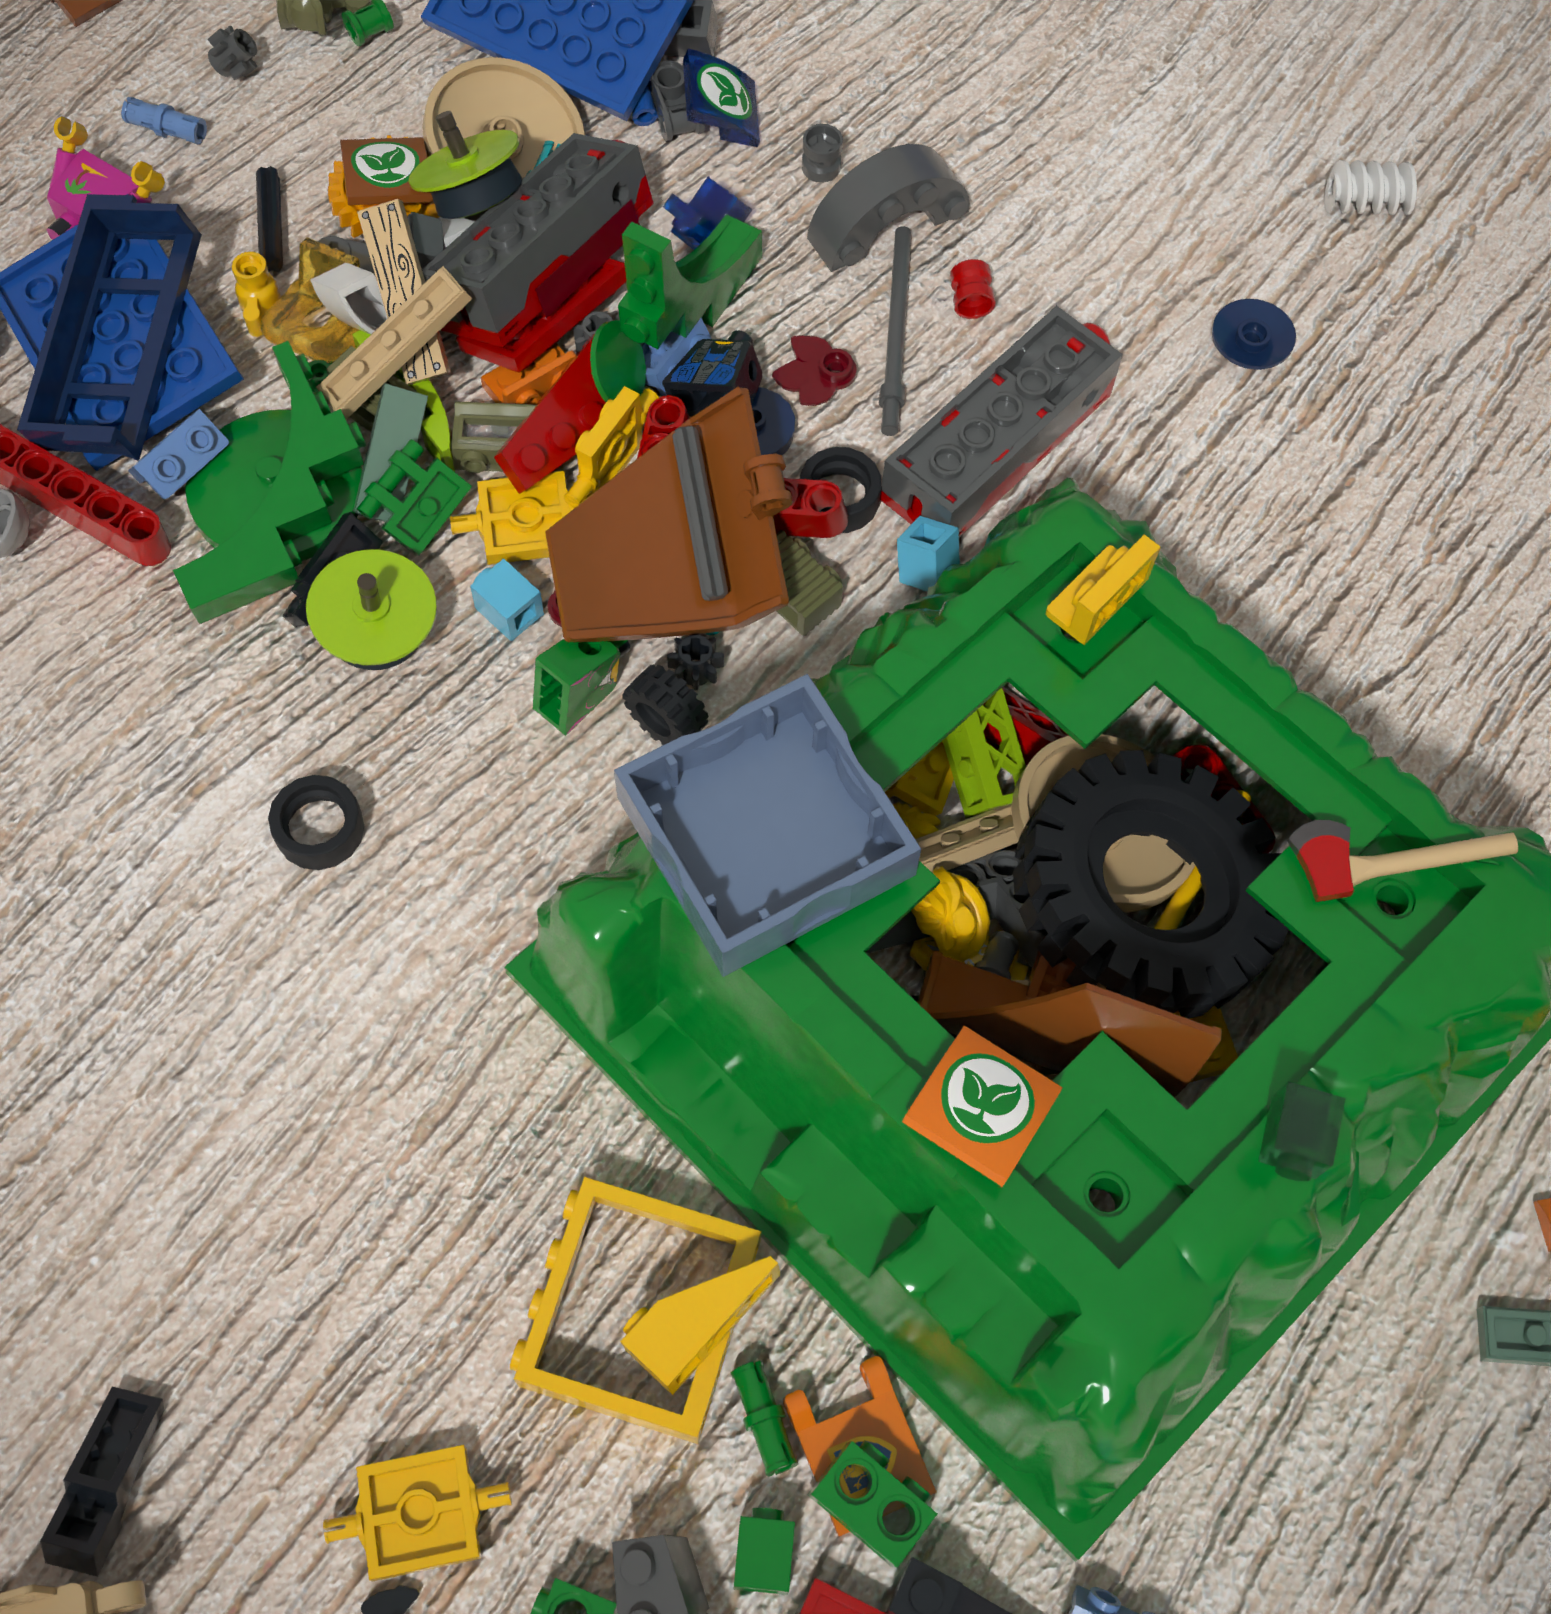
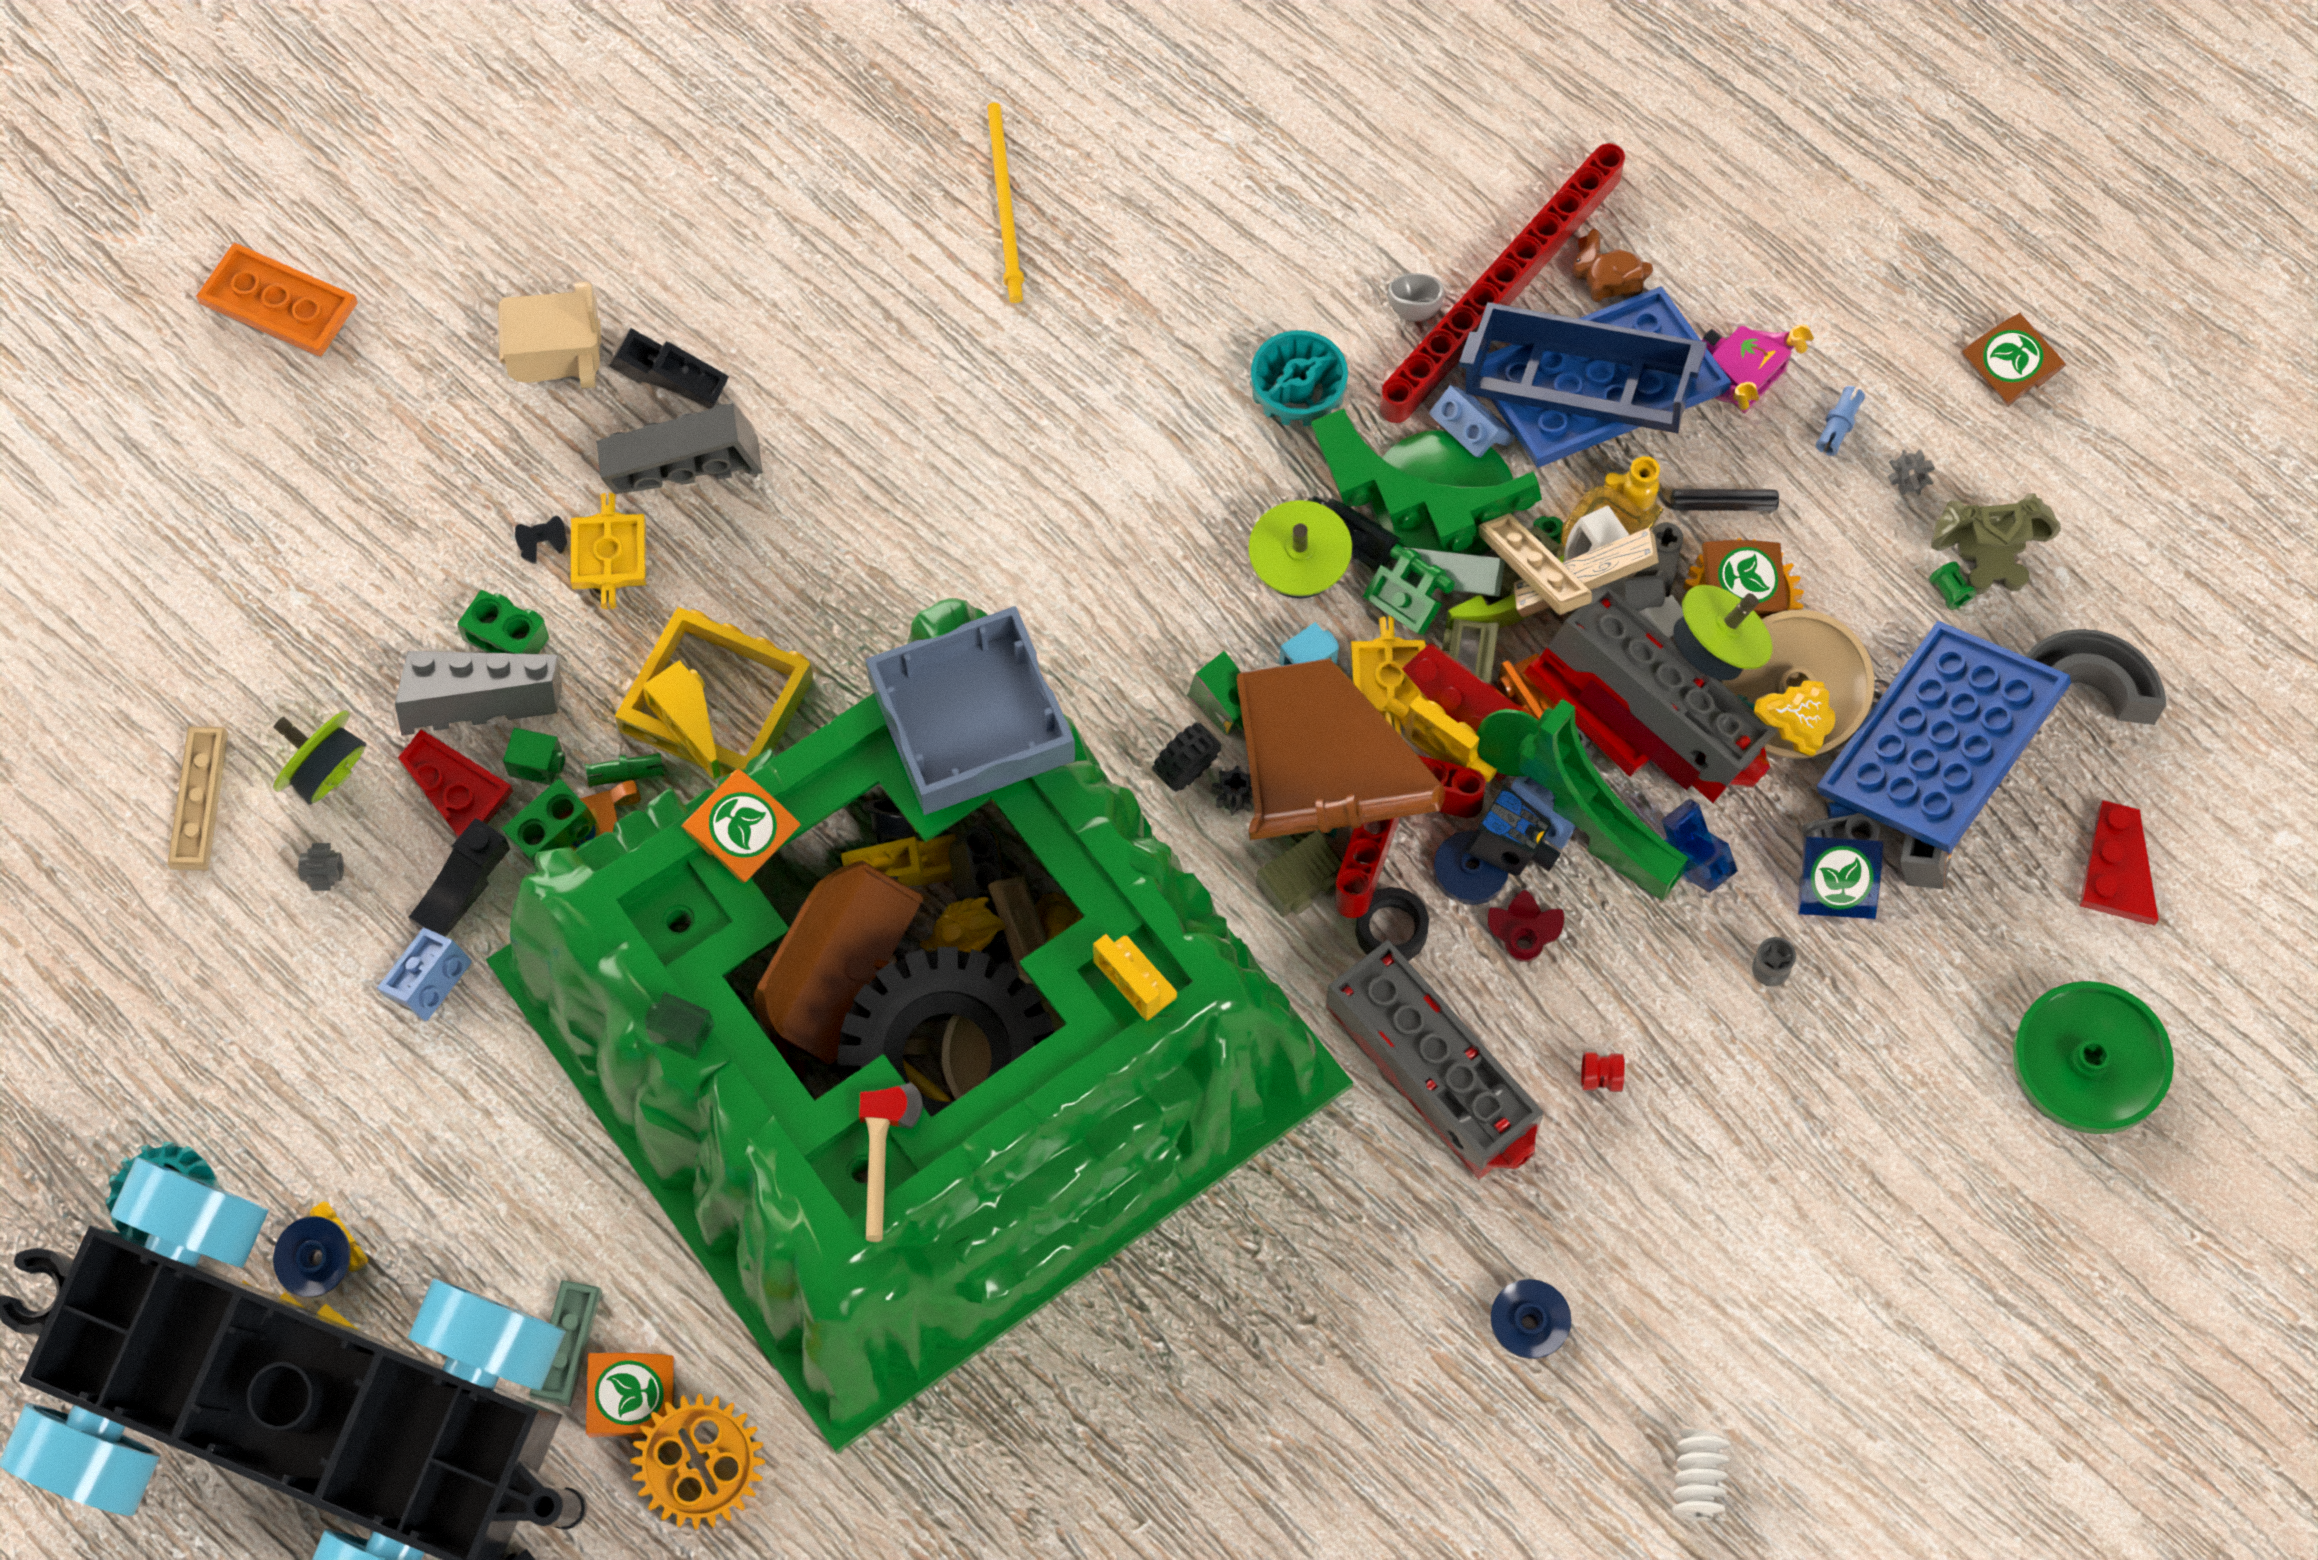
camera: 100 degrees right, 0 degrees up
(107, 614) = (1304, 362): none -> teal gear
(248, 1438) = (679, 450): none -> dark grey wedge
(309, 790) = (1128, 487): black tyre -> none
(548, 115) = (1799, 715): none -> yellow rock
(700, 513) = (1362, 785): dark grey axle -> none
(880, 192) = (1708, 1012): dark grey brick -> none
(892, 391) = (1492, 987): dark grey bar -> none
(926, 552) = (1309, 980): medium azure brick -> none

